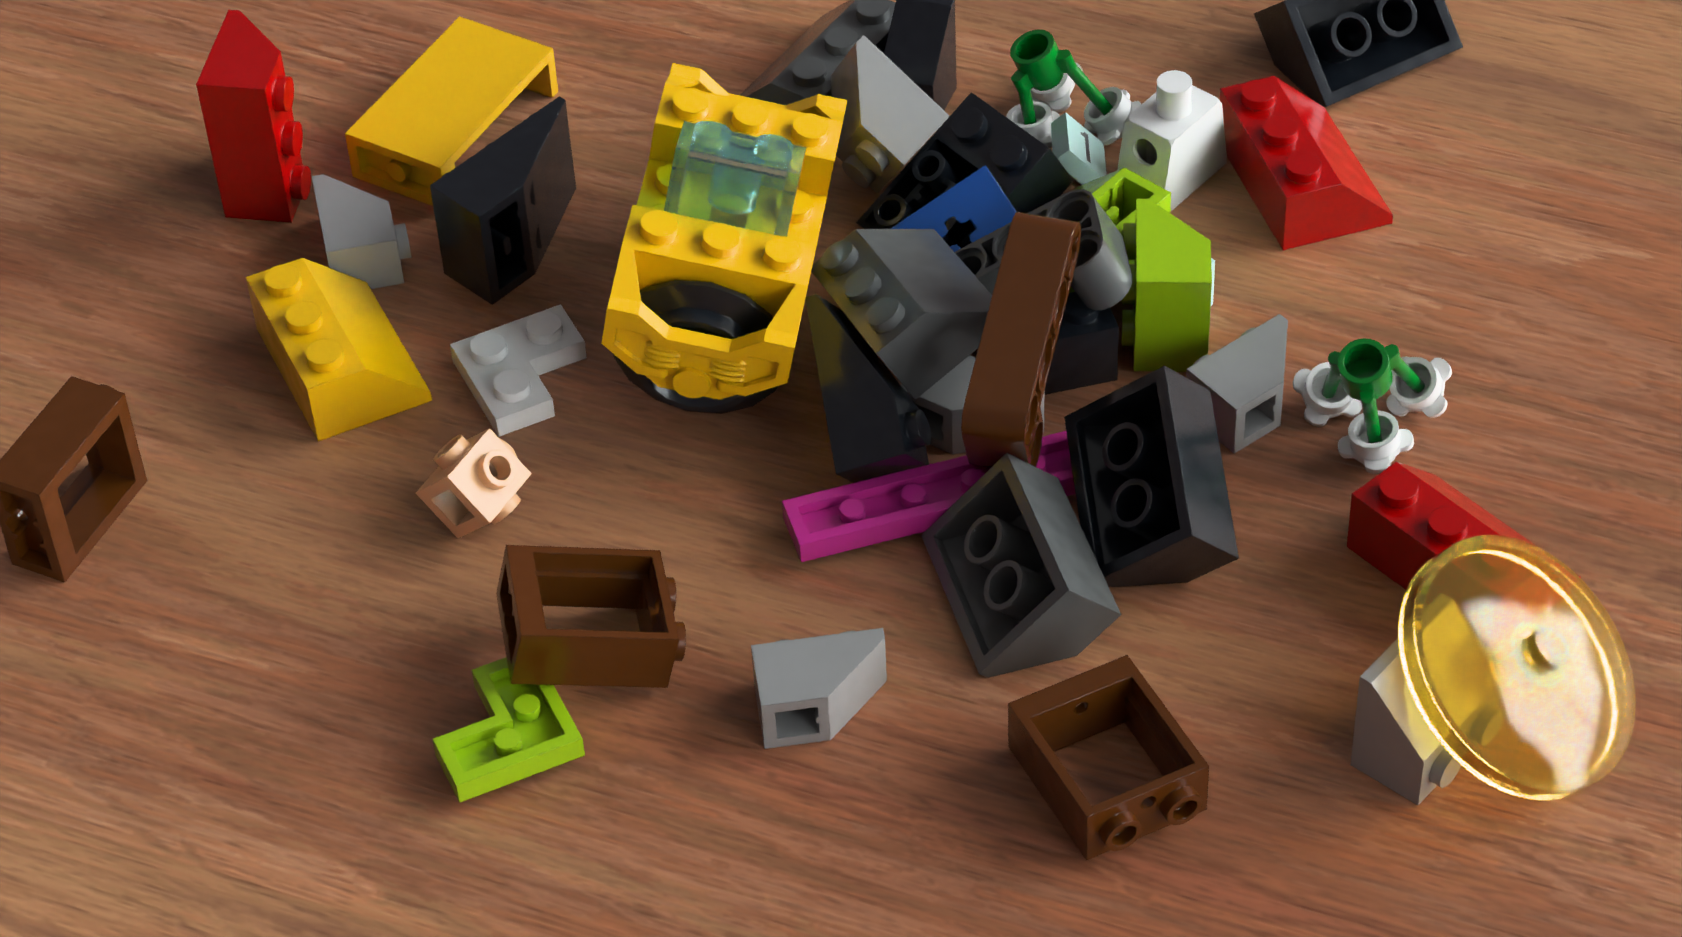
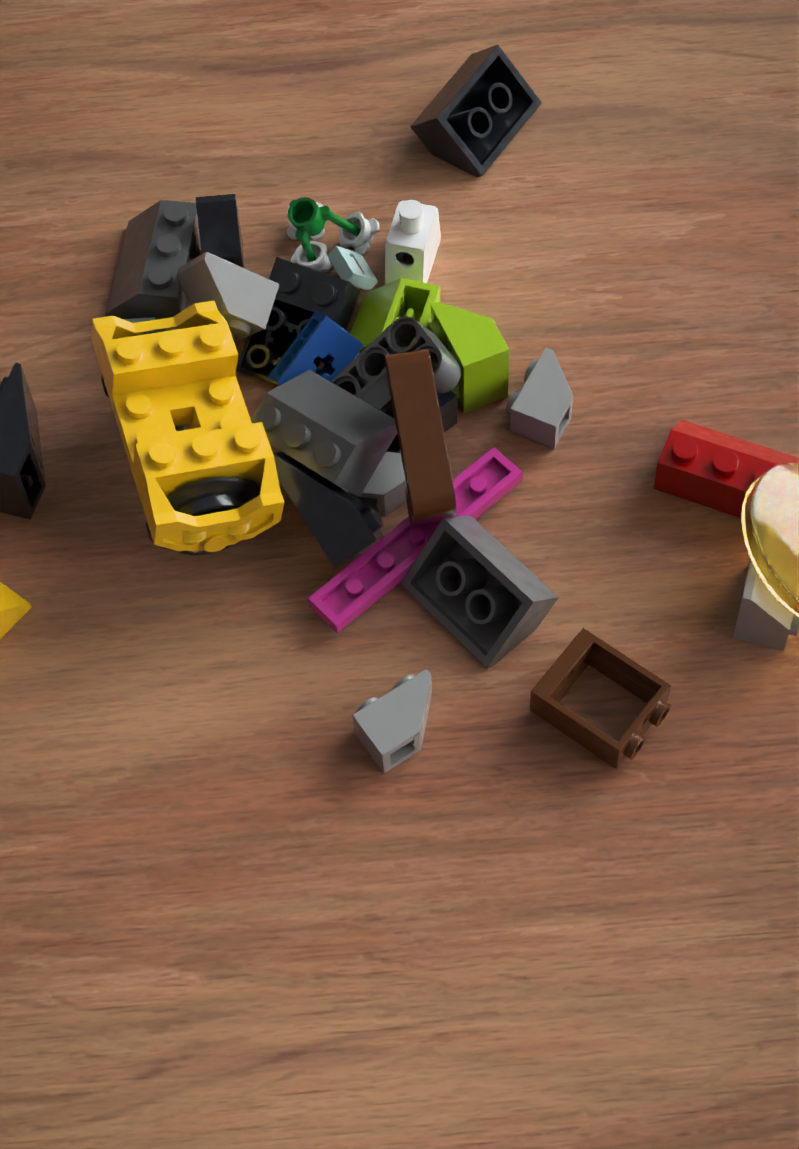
camera: 25 degrees left, 15 degrees up
(474, 482) = (105, 665): light nougat brick -> none
(506, 365) = (67, 566): white plate -> none
(522, 737) = (235, 827): lime plate -> none
(594, 579) = (206, 764): reddish brown window -> none
(735, 177) = (190, 399): clear light blue slope -> none
(1152, 482) = (530, 497): black slope -> none
(1297, 164) = (491, 229): red slope -> none
(1355, 381) = (625, 377): white plant -> none

